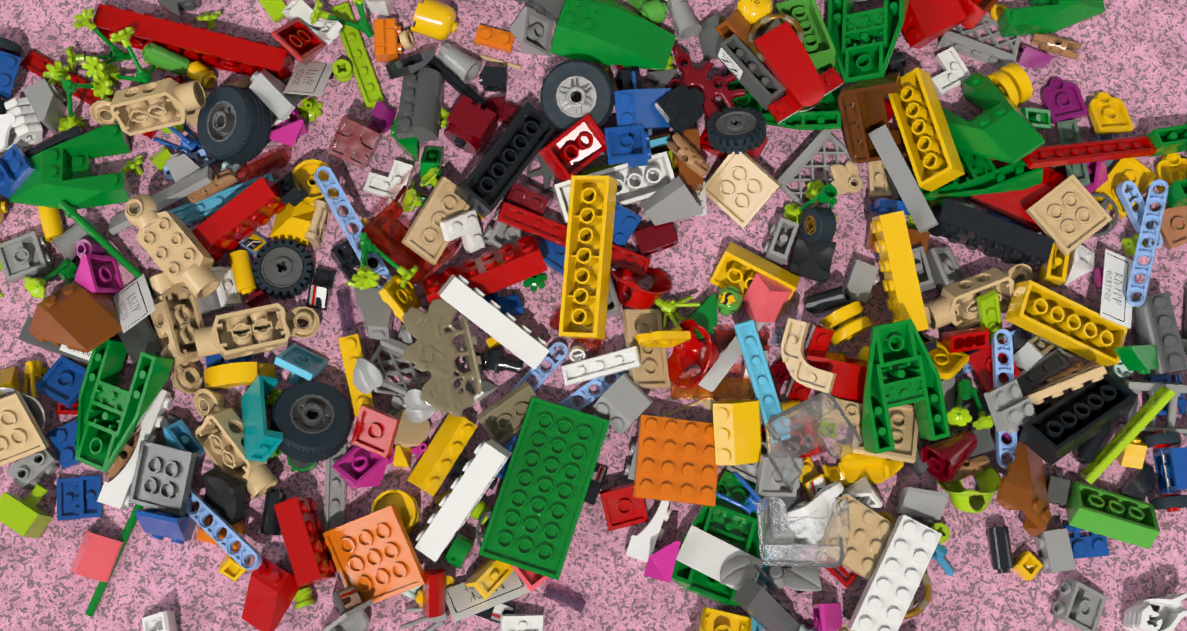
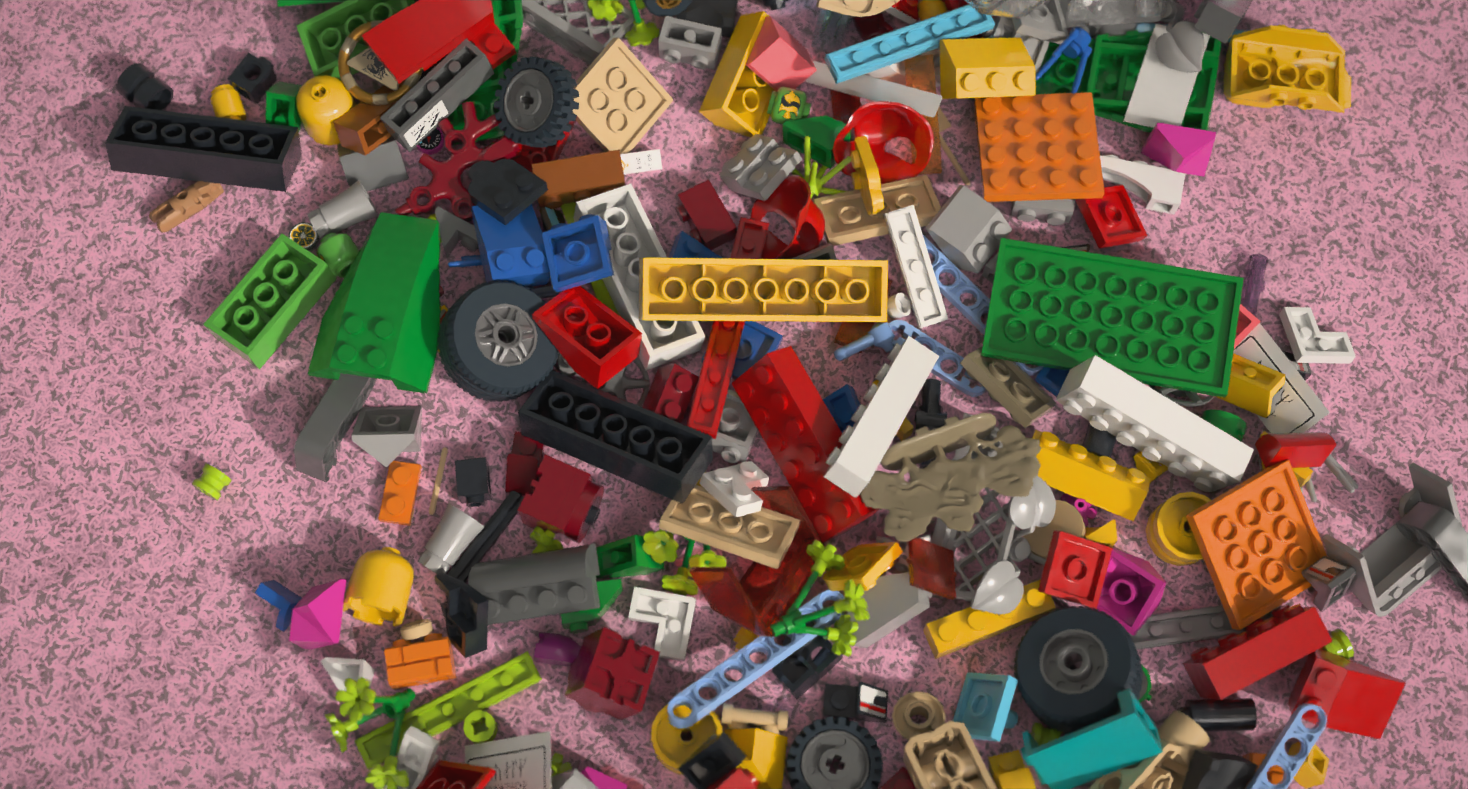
camera: 90 degrees left, 5 degrees down
(345, 310) = (863, 664): clear purple pin -> none
(389, 339) = (931, 568): none -> clear red piece
(552, 337) = (879, 335): none -> medium blue piece
(624, 79) = (458, 279): black brick -> none
(670, 204) = (657, 191): light grey slope -> none
(684, 274) = (759, 167): none -> light grey plate
(688, 155) = (580, 169): medium nougat hinge -> none

